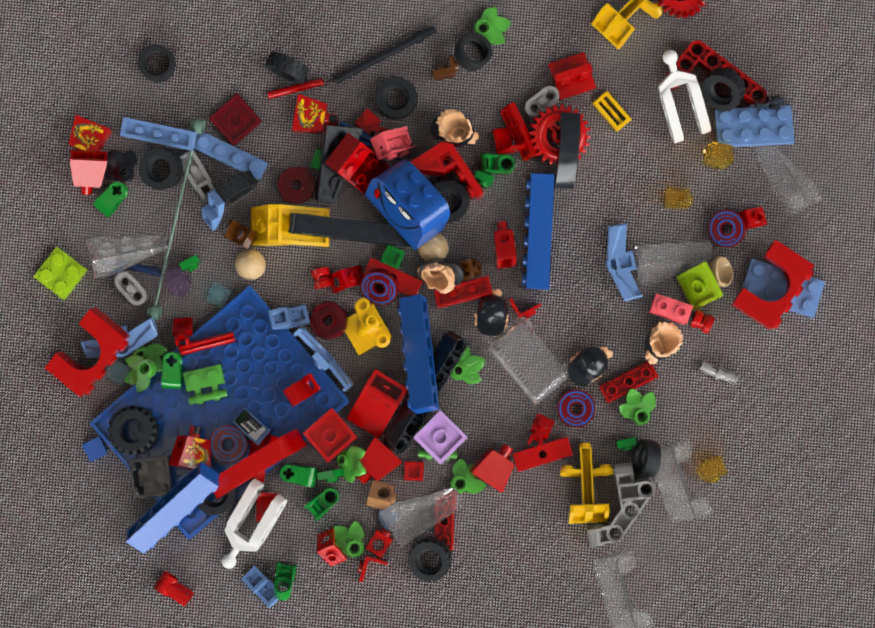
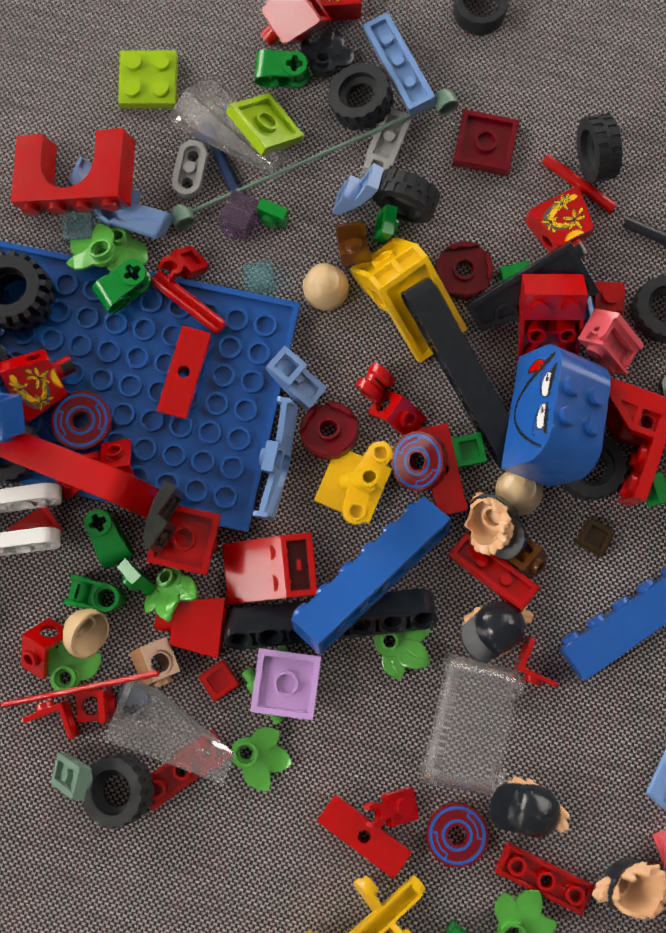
camera: 55 degrees right, 5 degrees down
(137, 230) = (264, 123): none -> lime plate
(205, 378) = (142, 331): bright green plate -> none
(230, 155) = (439, 165): medium blue plate -> none
(236, 363) = (188, 355): none -> red tile
(241, 208) = (385, 224): none -> green plate
(251, 426) = (123, 431): slope -> none
(301, 390) = (214, 459): red bracket -> none
(317, 441) = (158, 528): none -> pearl dark grey slope
(339, 519) = (85, 632): none -> tan piece
(365, 543) = (97, 685): none -> axle
(406, 576) = (71, 776): none -> sand green plate
(484, 227) = (594, 537): none -> dark brown tile
(494, 467) = (299, 785): red torso -> none
(504, 251) = (592, 581): red torso -> none

